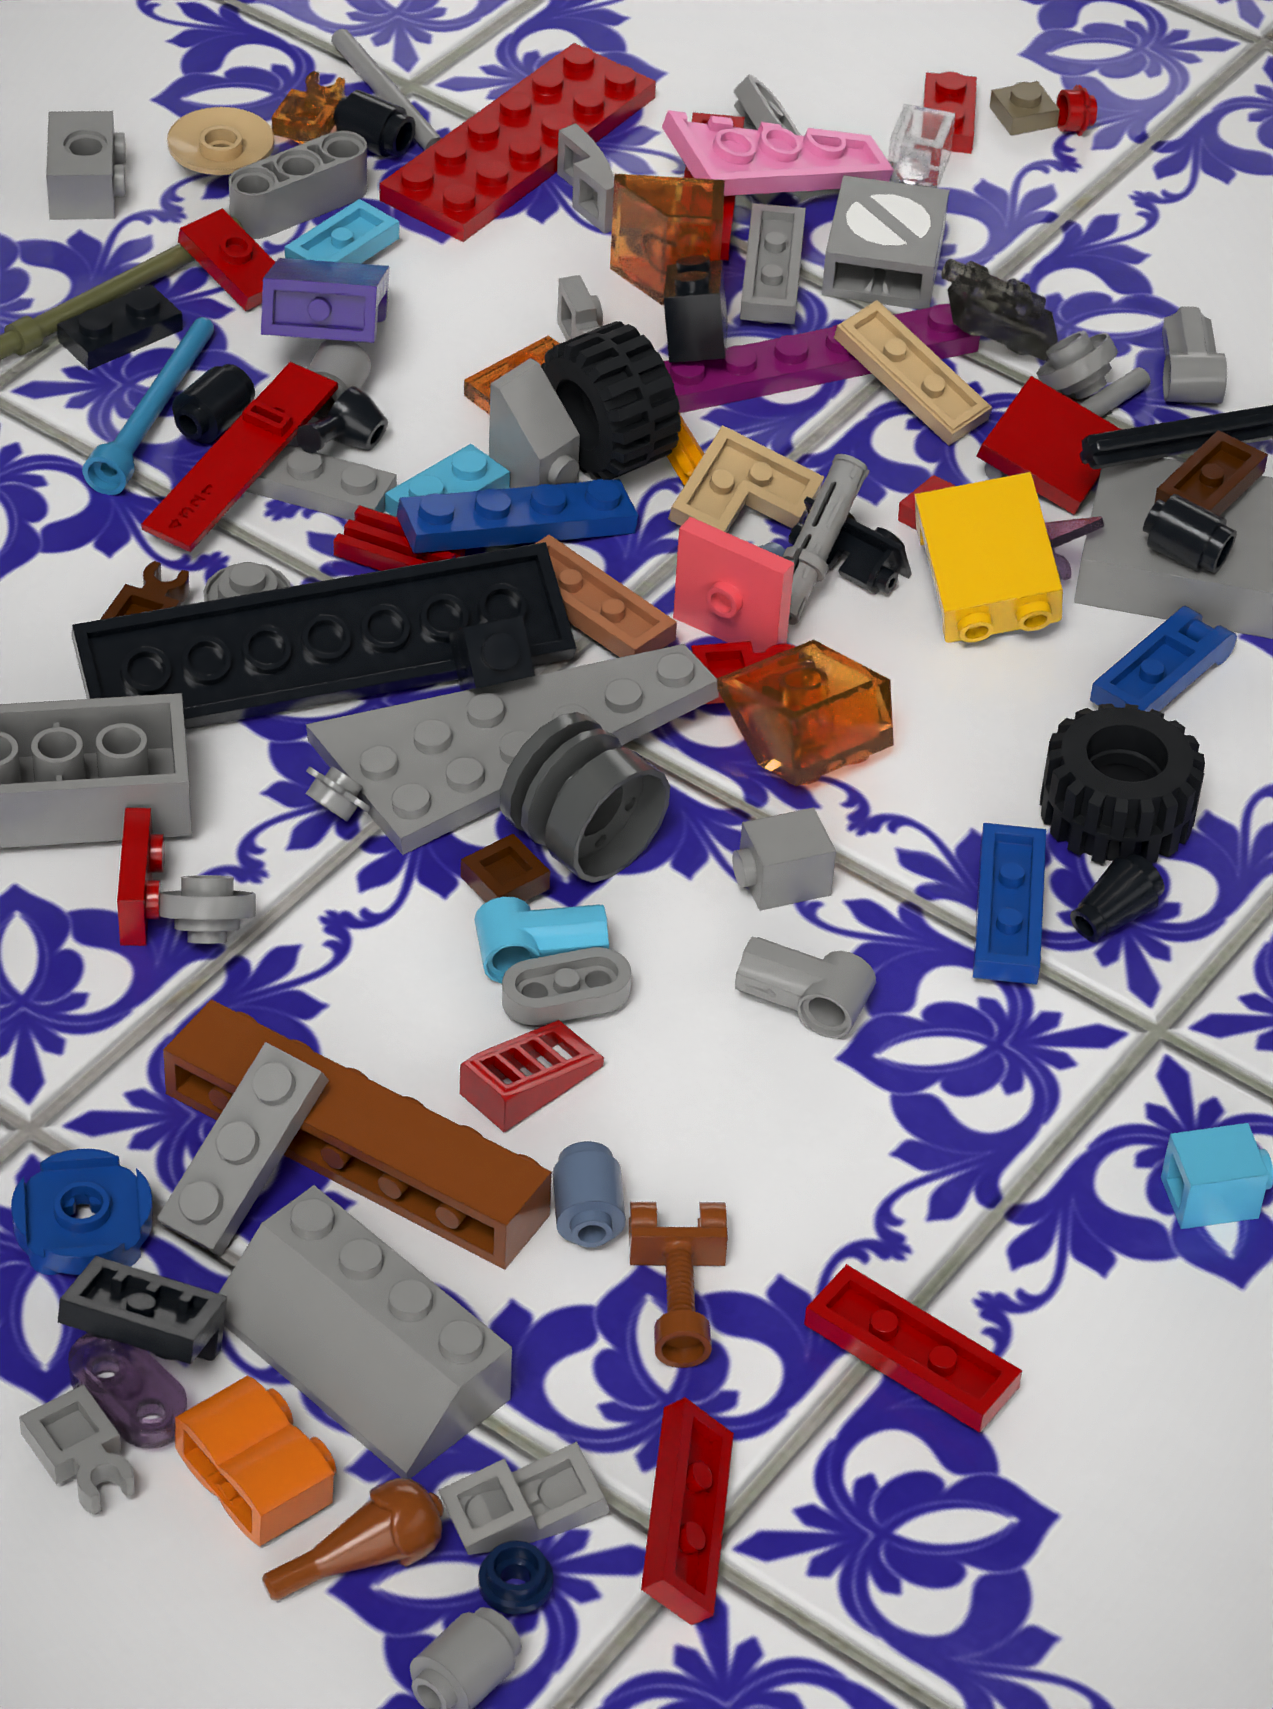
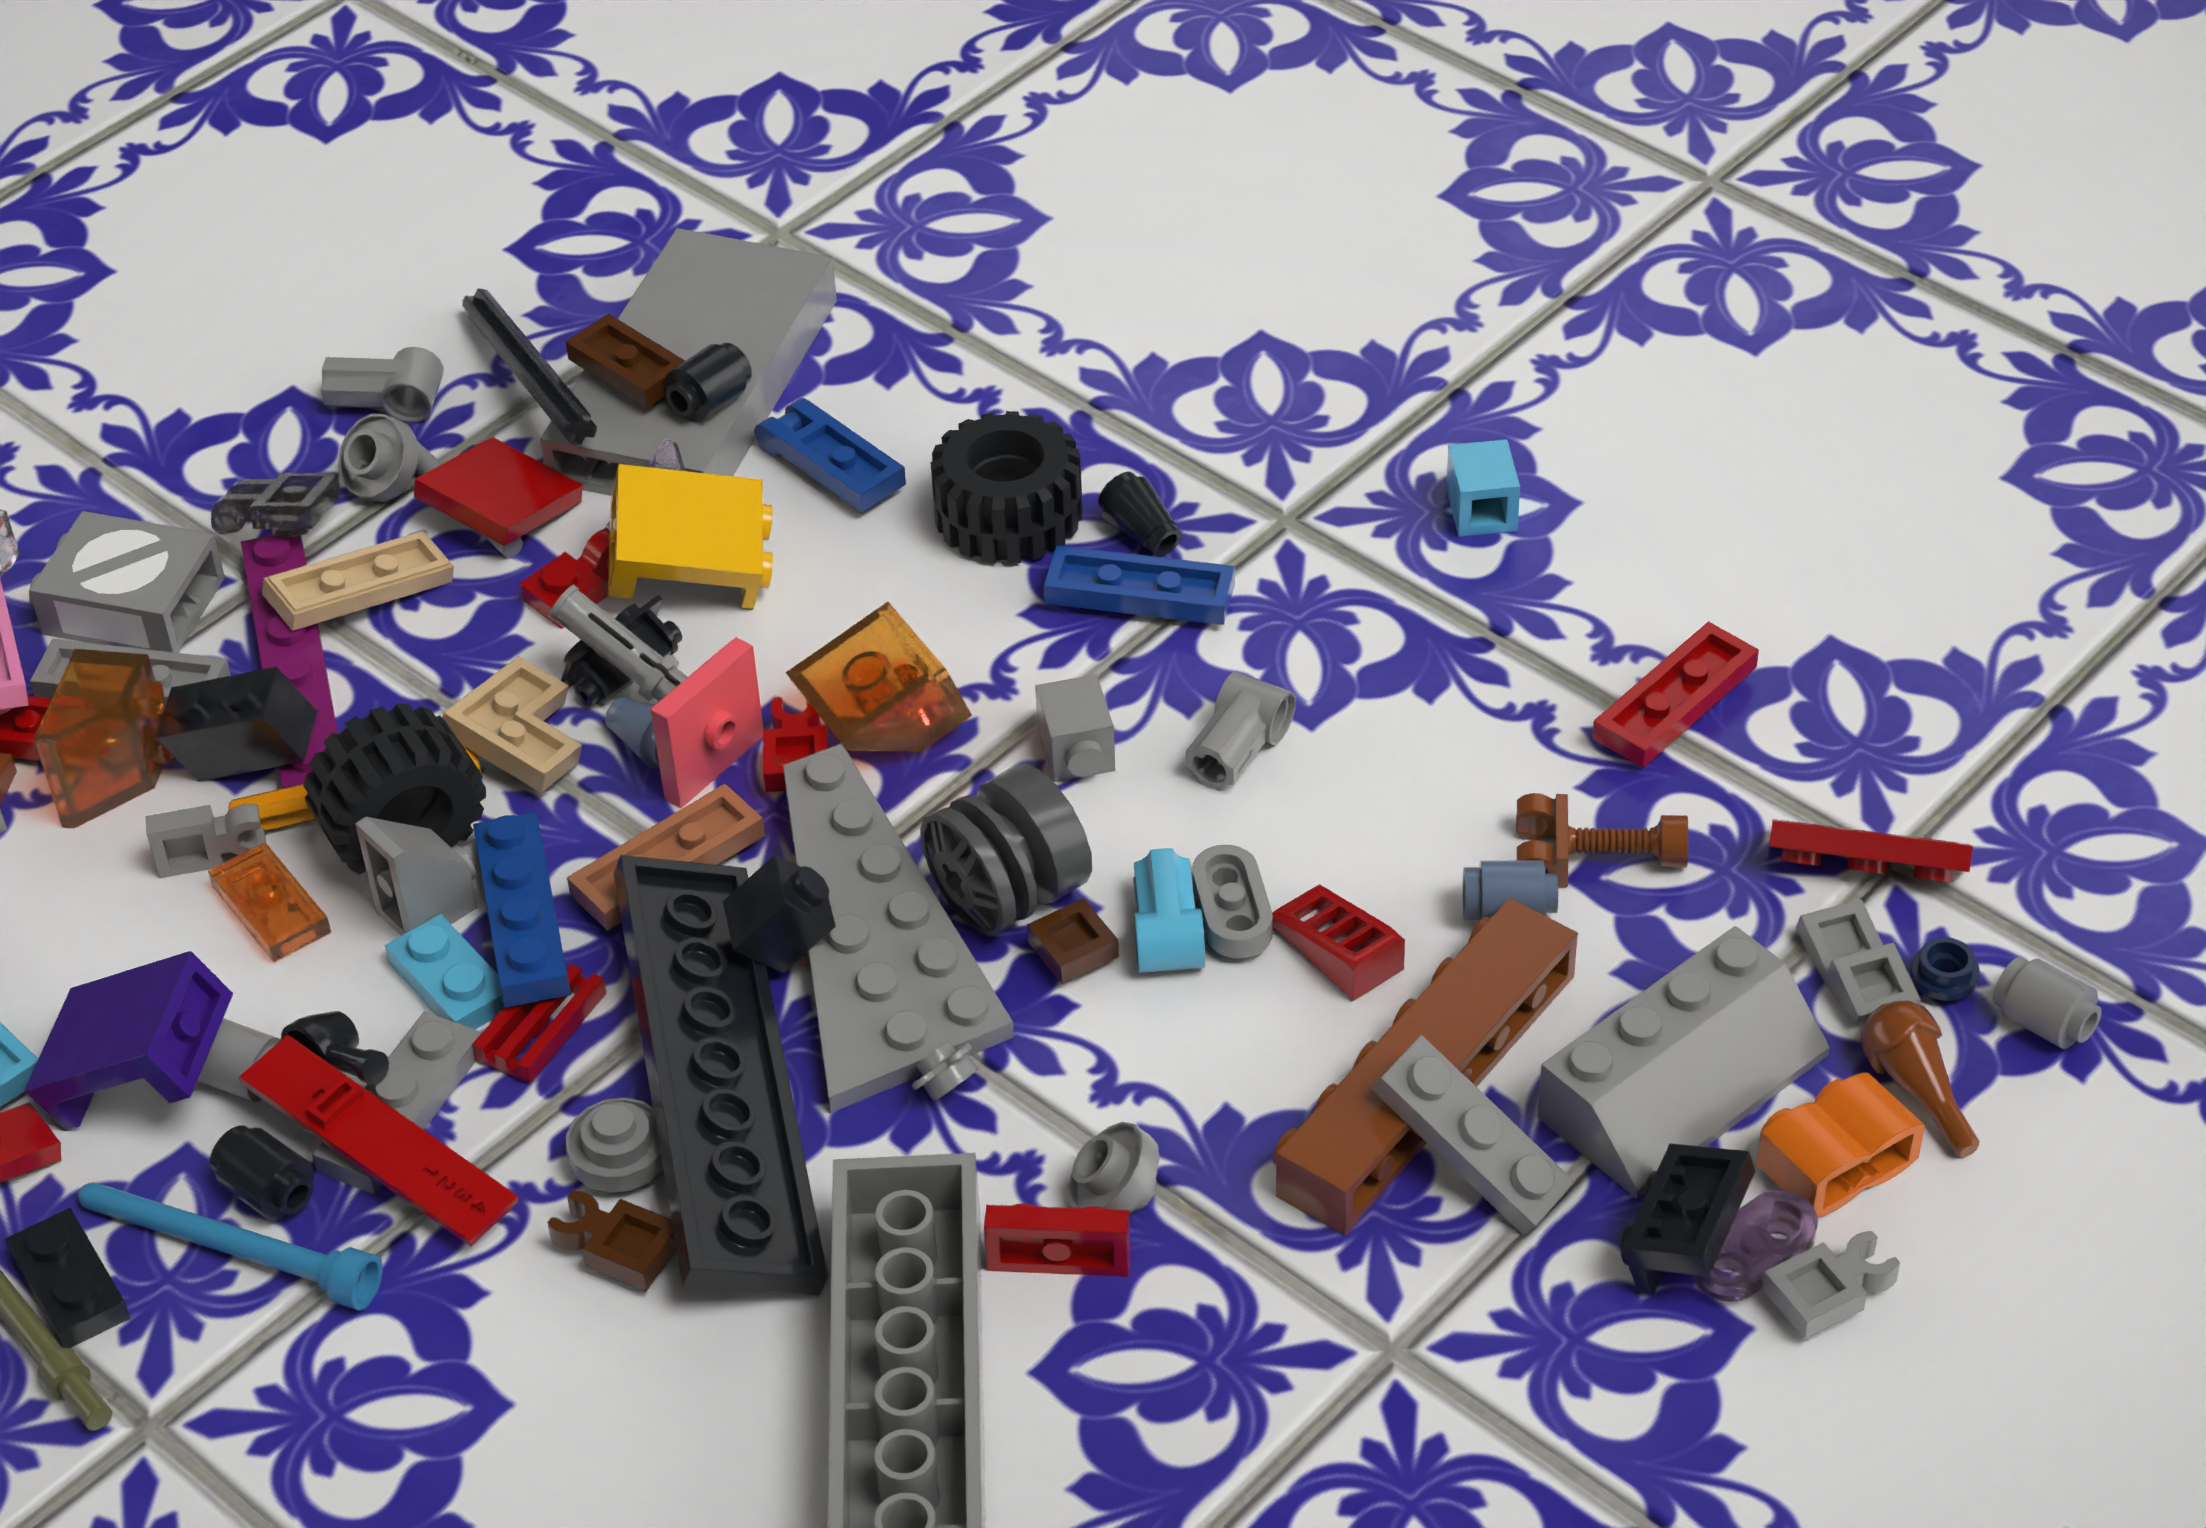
camera: 80 degrees left, 0 degrees up
(68, 1243) = (1524, 1321): blue plate -> none

